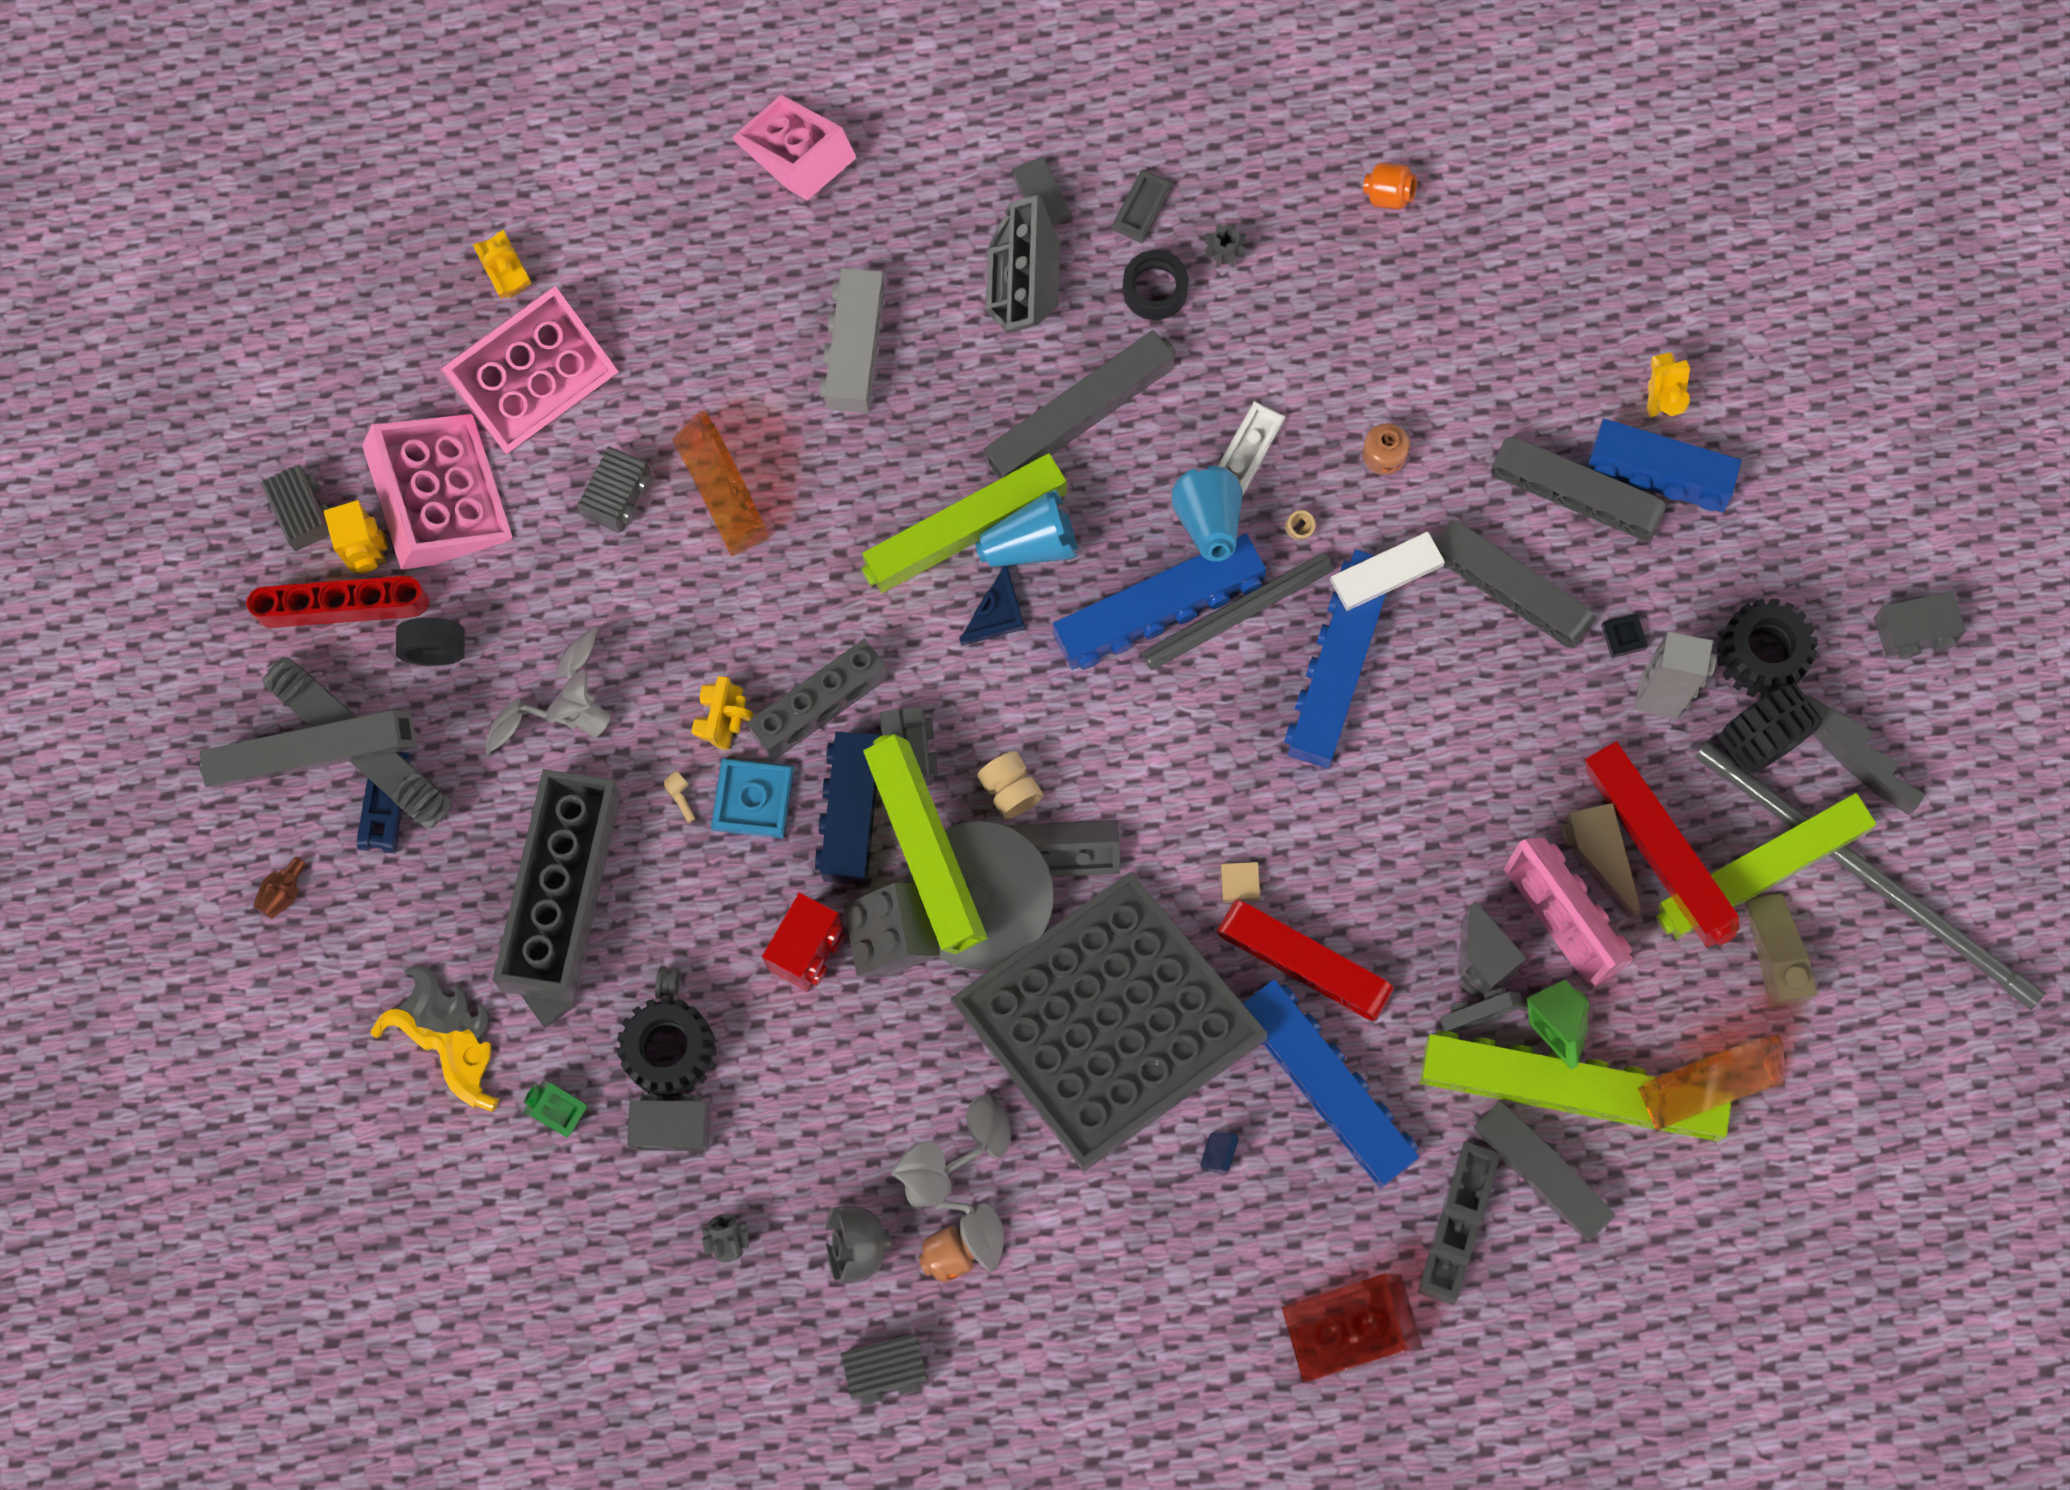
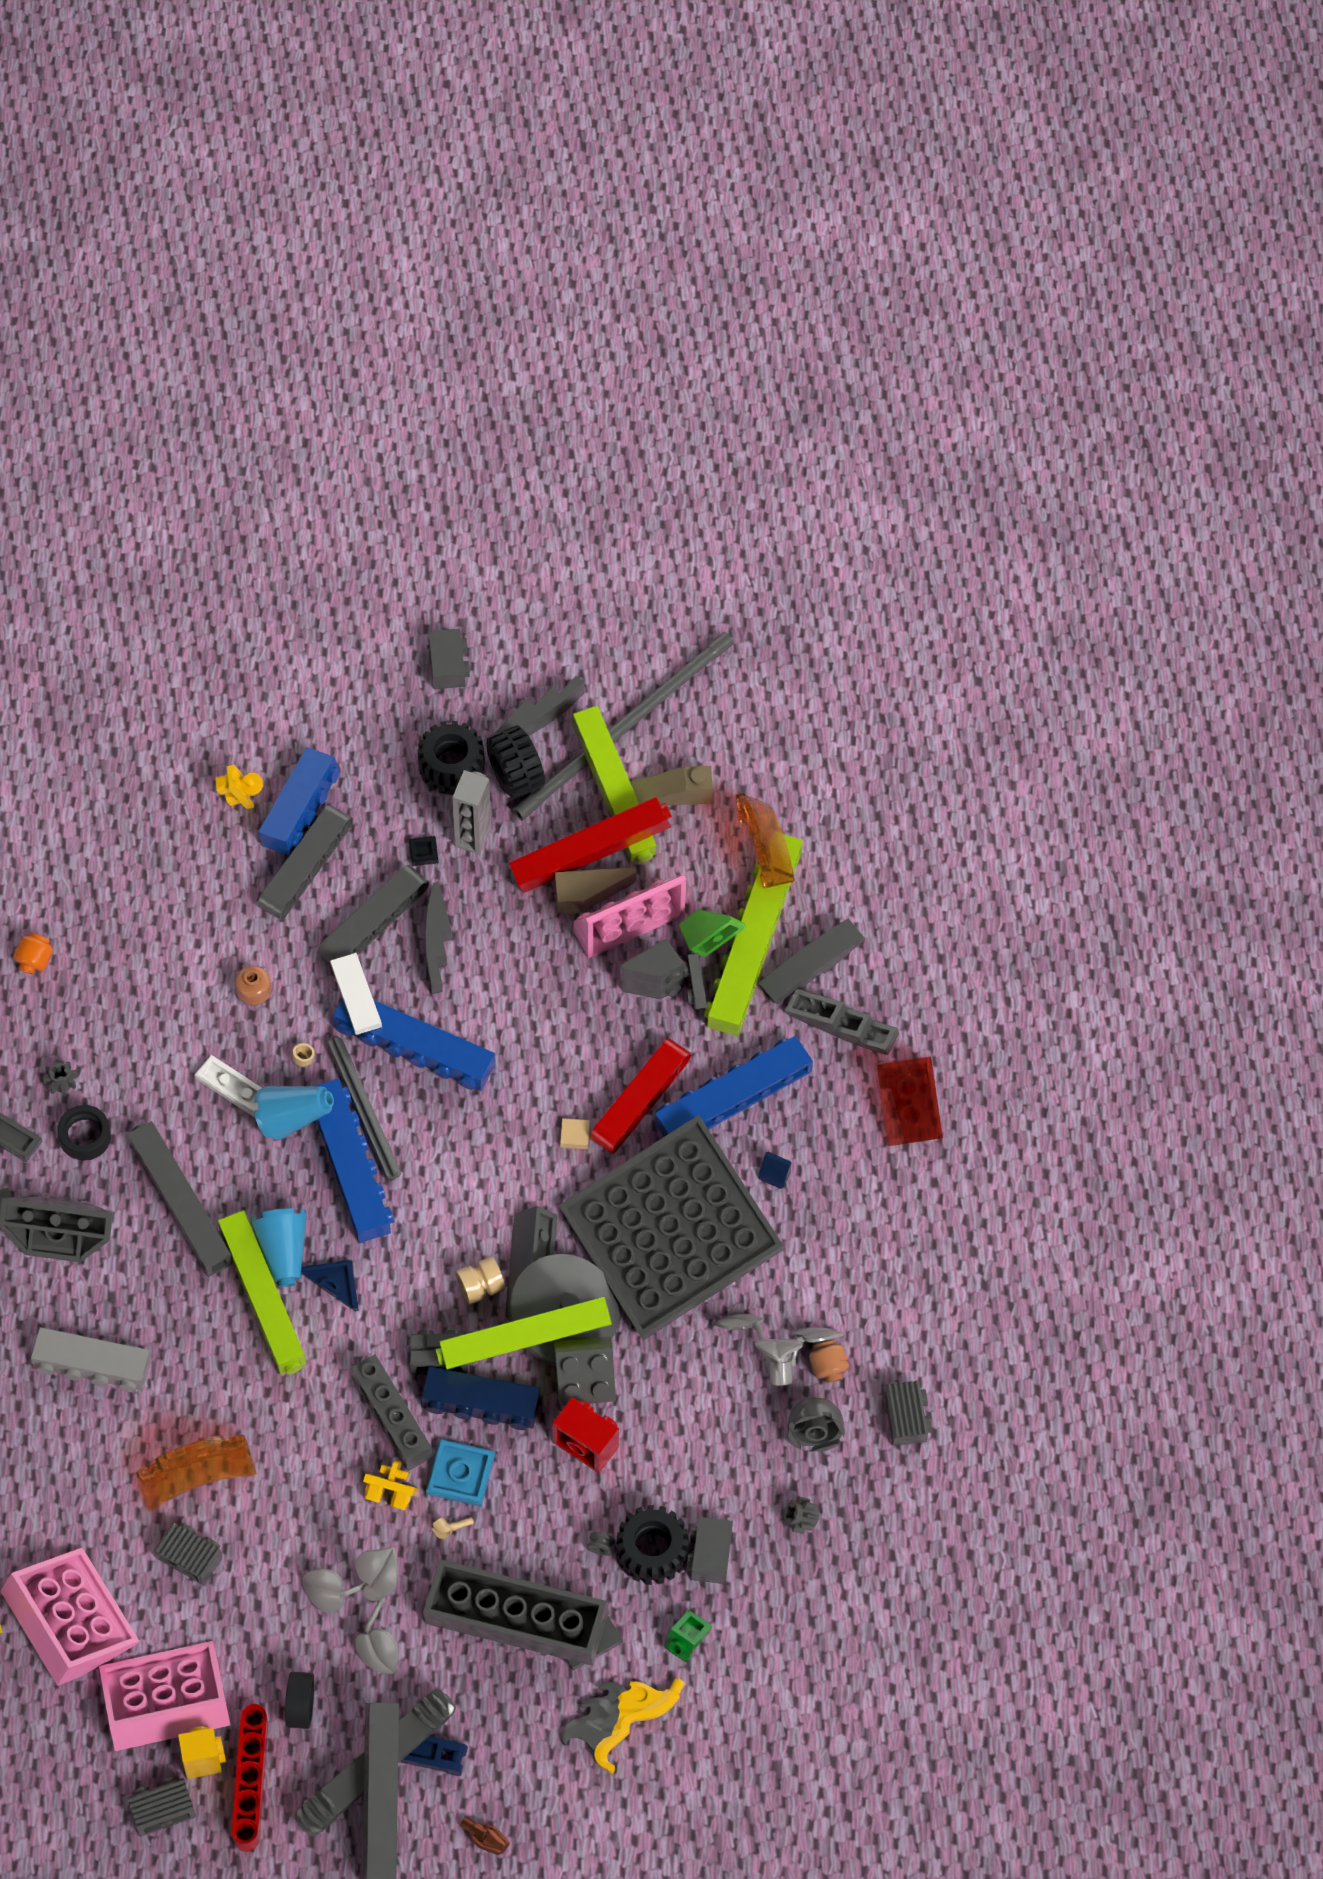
camera: 90 degrees left, 10 degrees down
(1507, 664) = (436, 932): none -> dark grey slope

